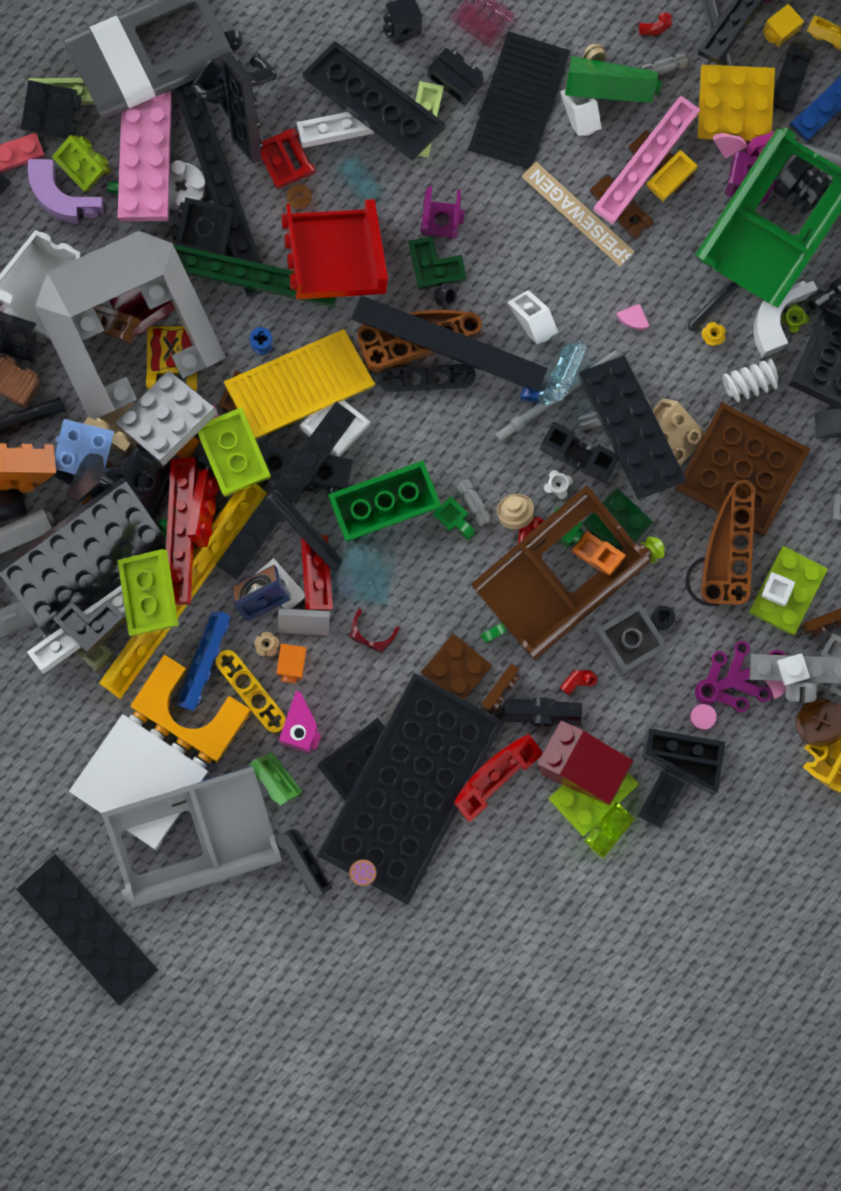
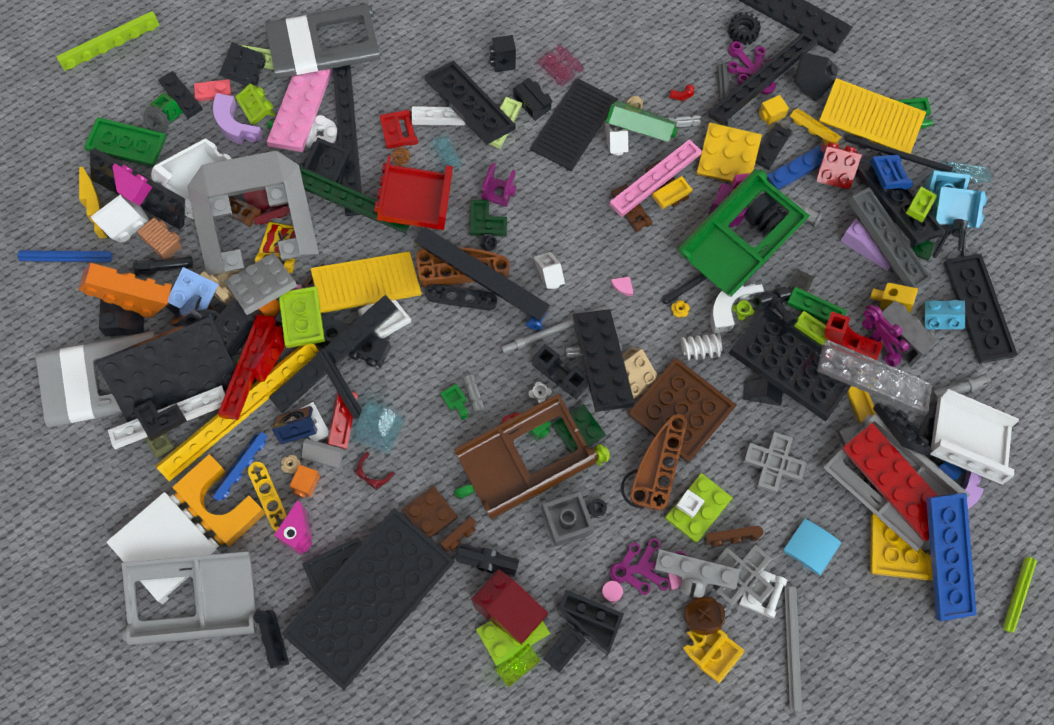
camera: 15 degrees right, 10 degrees down
(87, 929) = (90, 655): black plate -> none
(147, 592) = (207, 404): lime plate -> none
(231, 85) = (367, 72): black plate -> none
(234, 39) = (383, 46): black hinge -> none
(255, 337) = (346, 247): blue bush -> none
(275, 778) = (267, 567): bright green plate -> none
(362, 872) = (312, 655): nougat tile -> none
(384, 501) = (404, 375): green slope -> none
(494, 774) = (437, 601): red slope -> none
(515, 511) = (502, 405): tan plate -> none
(563, 373) = (561, 312): clear light blue plate -> none
(578, 214) = (599, 207): tan sticker -> none
(578, 678) = (521, 540): red arm -> none
(598, 553) = (557, 449): orange slope -> none
(729, 144) = (718, 178): bright pink tile -> none
(793, 669) = (689, 567): white plate -> none

